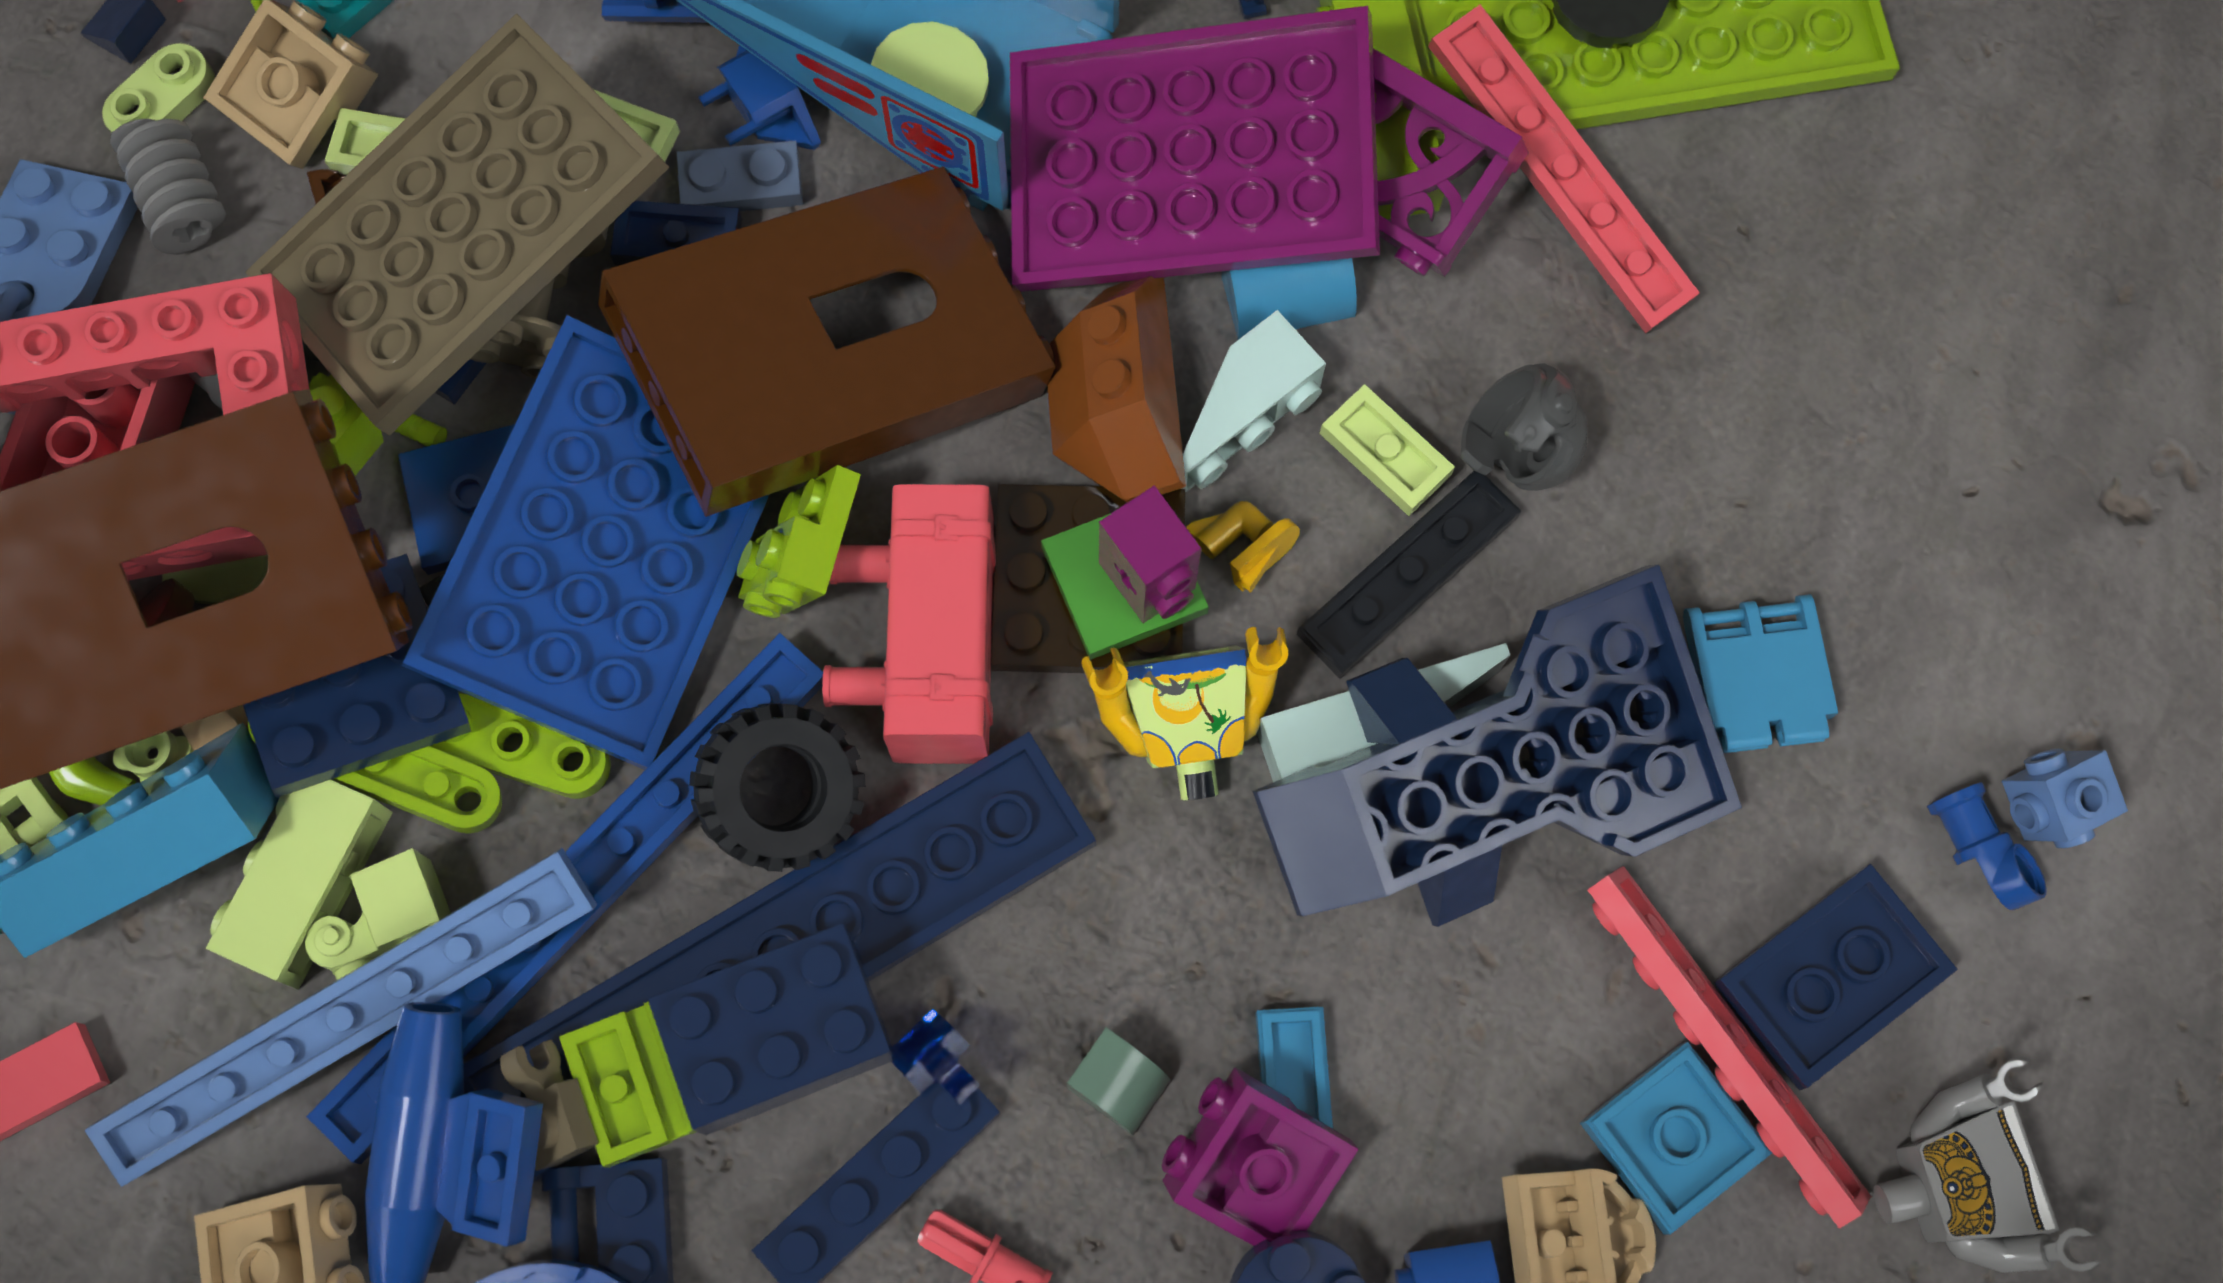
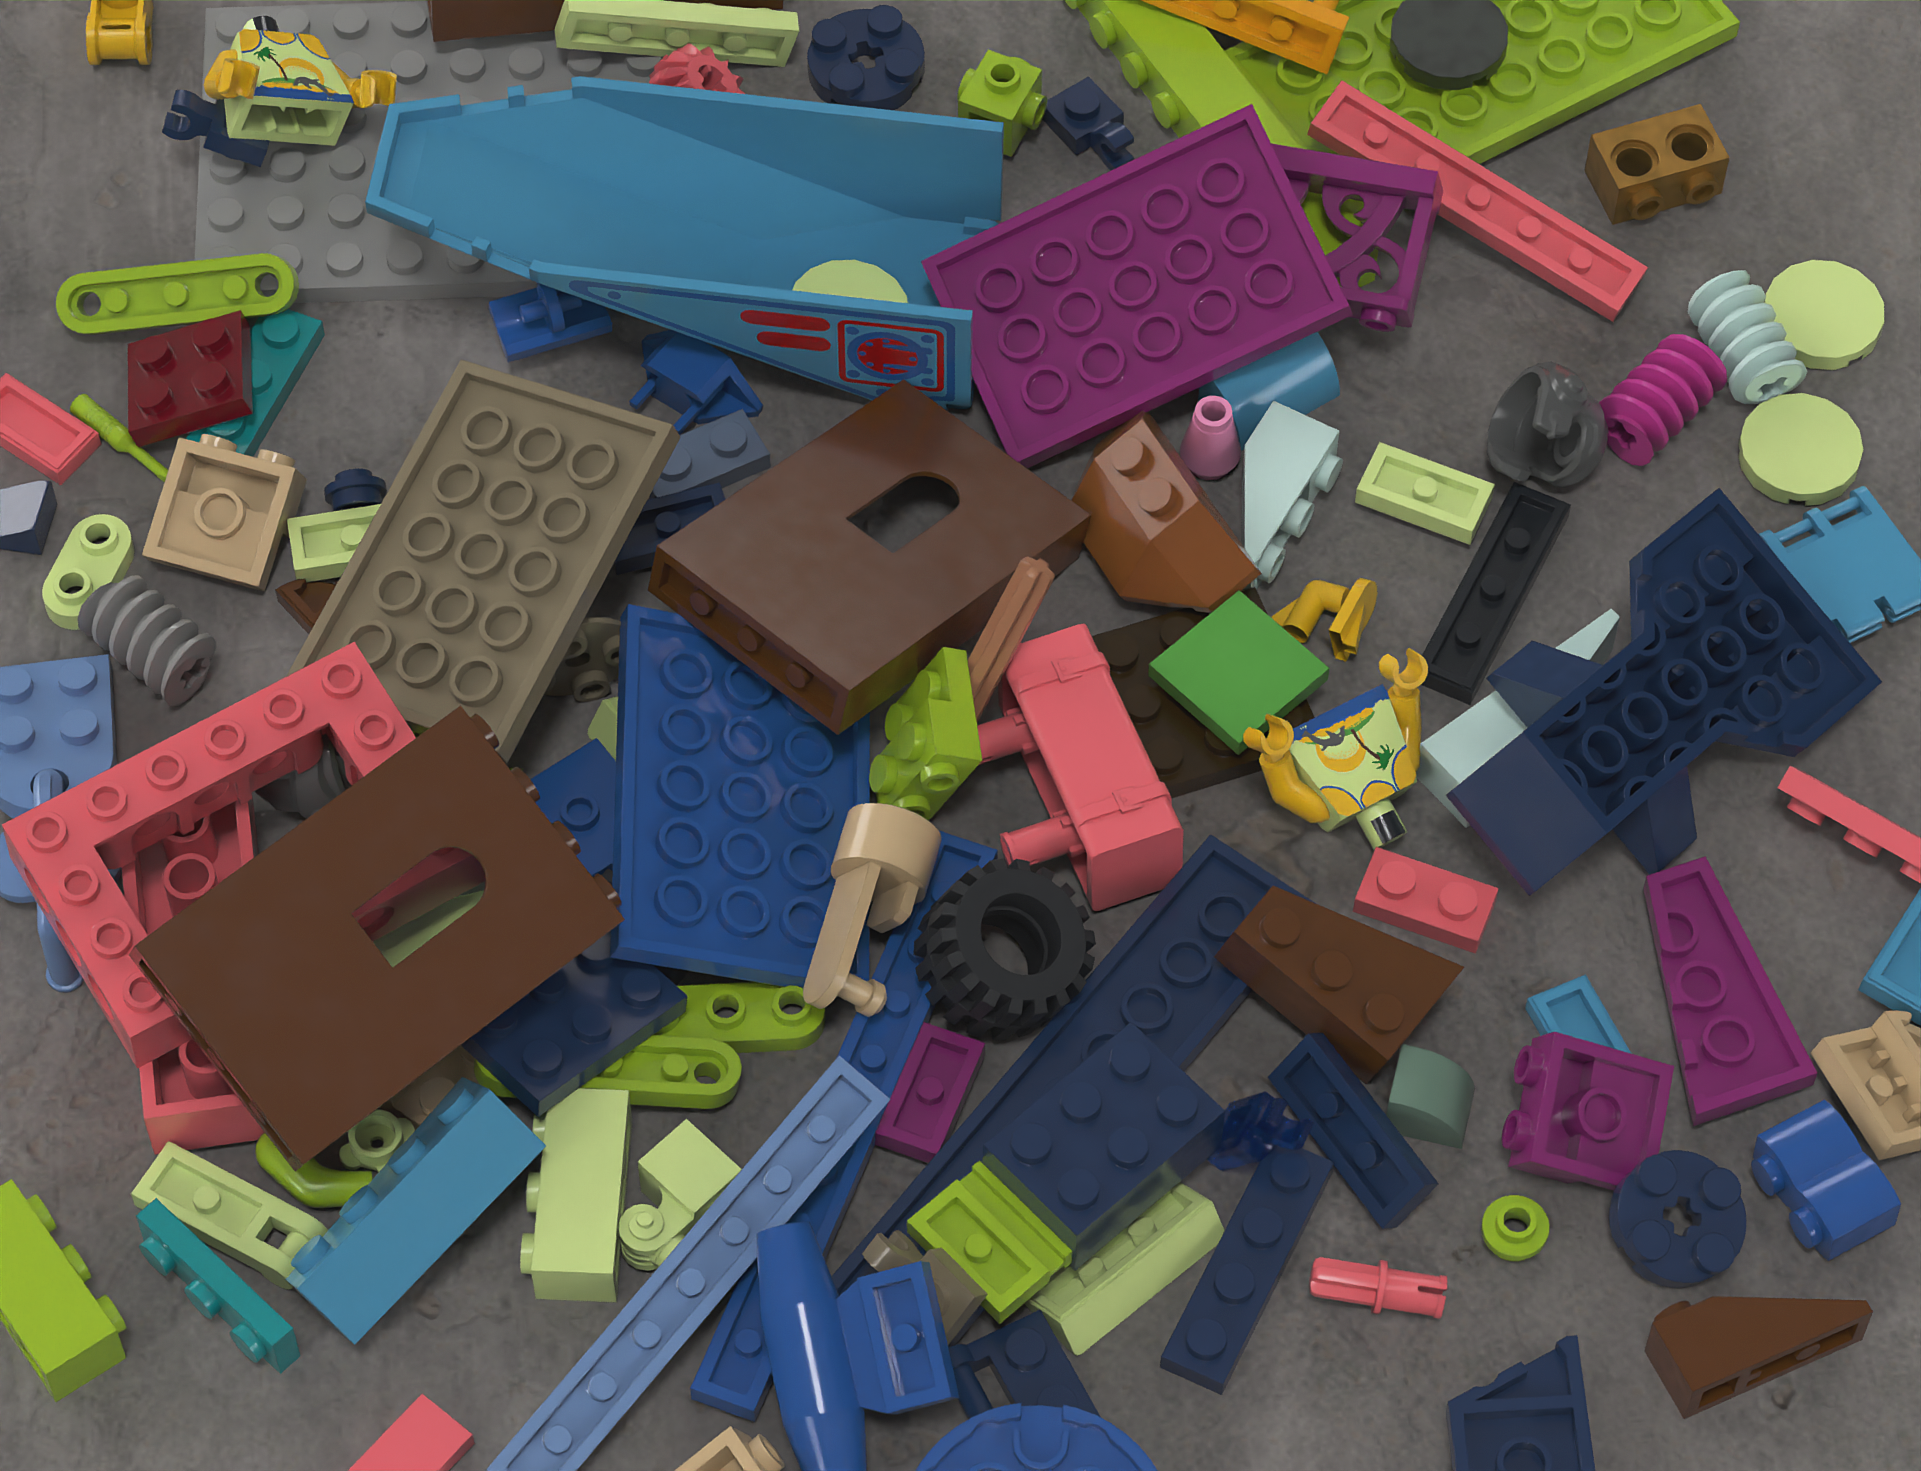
camera: 20 degrees left, 15 degrees down
(407, 97) = (355, 489): none -> dark blue plate
(659, 896) = (930, 1093): none -> magenta plate
(700, 647) = (883, 859): none -> tan piece
(766, 1145) = (1129, 1269): none -> yellowish green slope
(893, 476) = (1007, 628): none -> nougat axle
(1030, 1088) = (1353, 1130): none -> dark blue plate
(1077, 936) = (1336, 976): none -> reddish brown wedge
(1149, 556) = (1265, 627): magenta brick -> none
(1164, 1246) = (1510, 1244): none -> lime plate
(1207, 326) = (1211, 440): none -> bright pink cone
(1207, 868) = (1425, 900): none -> coral plate
(1439, 1093) = (1721, 1005): none -> magenta wing
(1652, 428) = (1661, 397): none -> dark pink piece
(1753, 174) = (1656, 164): none -> pearl gold brick
(1757, 401) = (1746, 338): none -> light aqua piece
(1769, 530) = (1800, 449): none -> yellowish green tile
(1851, 397) = (1827, 312): none -> yellowish green tile

